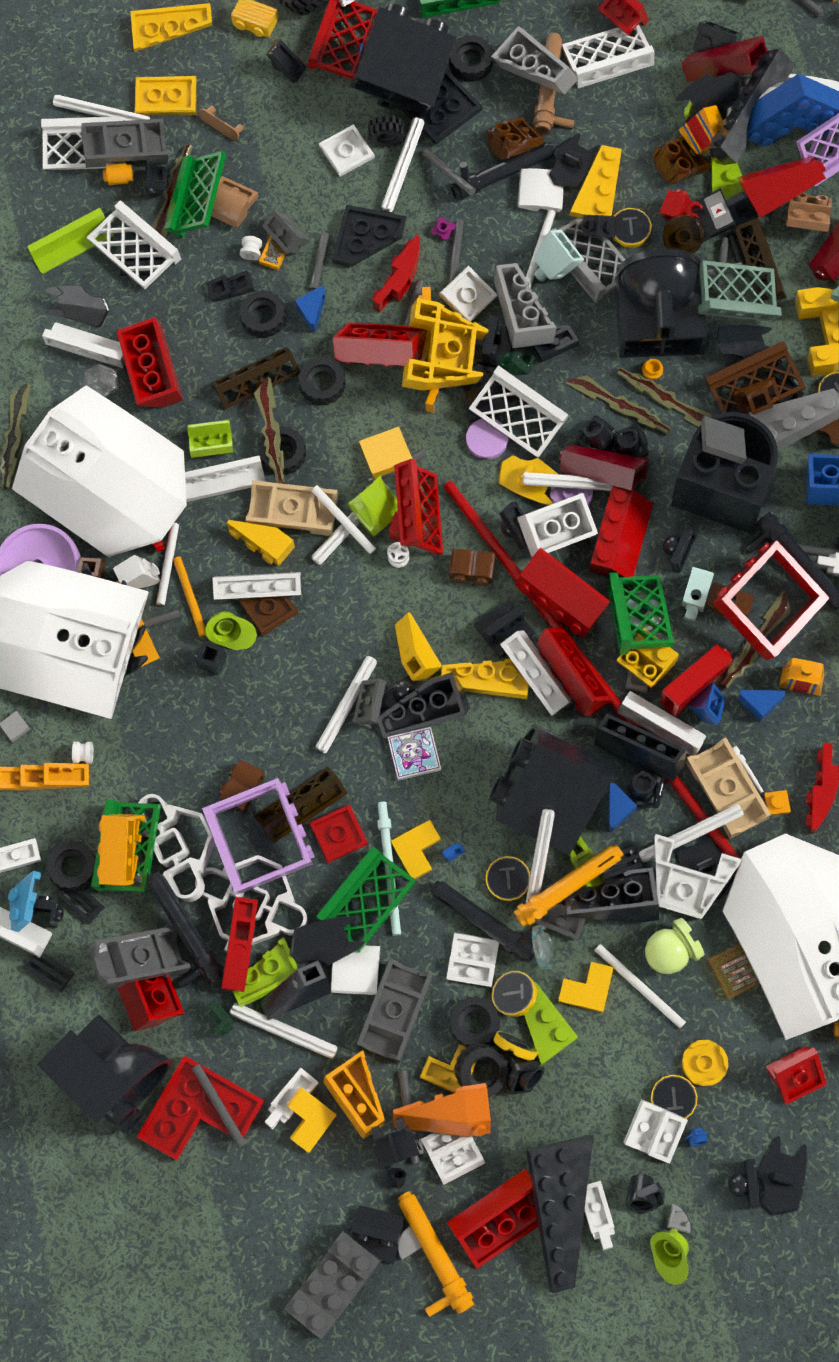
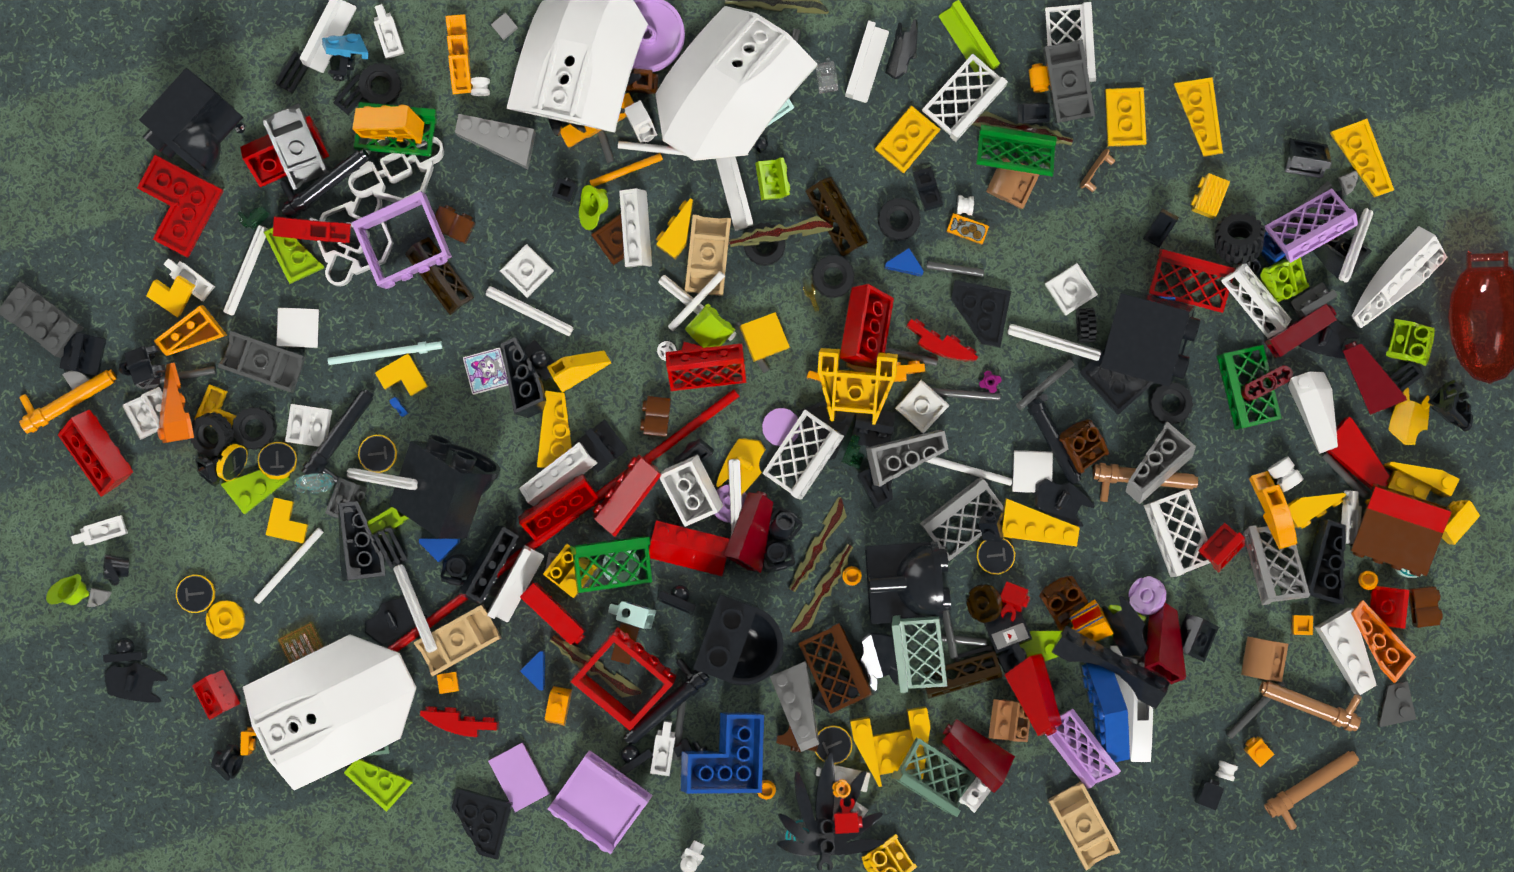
camera: 85 degrees right, 15 degrees up
(94, 109) = (1107, 57): white axle -> none
(146, 726) = (500, 138): none -> light grey wedge
(149, 364) = (843, 119): red slope -> none
(175, 305) = (907, 139): none -> yellow tile
(219, 1106) = (179, 220): dark grey bar -> none
(285, 232) = (980, 236): dark grey hinge -> none
(297, 990) = (275, 279): black slope -> none
(299, 706) = (526, 271): none -> white tile
(323, 941) = (317, 300): black shield -> none
(338, 833) = (414, 308): red tile -> none
(339, 403) = (811, 295): none -> clear yellow hand
(355, 882) = (365, 321): green fence -> none
(369, 702) = (526, 330): dark grey bracket -> none
(539, 905) = (346, 478): light orange cylinder -> none
(556, 256) = (956, 486): light aqua torso -> none
(559, 1189) = (110, 499): black wing -> none
(655, 1131) = (167, 578): white slope -> none
(670, 949) = (314, 590): yellowish green tile -> none
(673, 79) = (1147, 595): none -> lavender tile
(688, 889) = (369, 603): white wing -> none
(697, 1137) = (163, 612): blue plate -> none
(709, 705) = (531, 625): blue slope -> none
(723, 440) = (753, 635): dark grey tile -> none
(747, 769) = (485, 652): white piece -> none
(757, 396) = (817, 670): reddish brown brick -> none

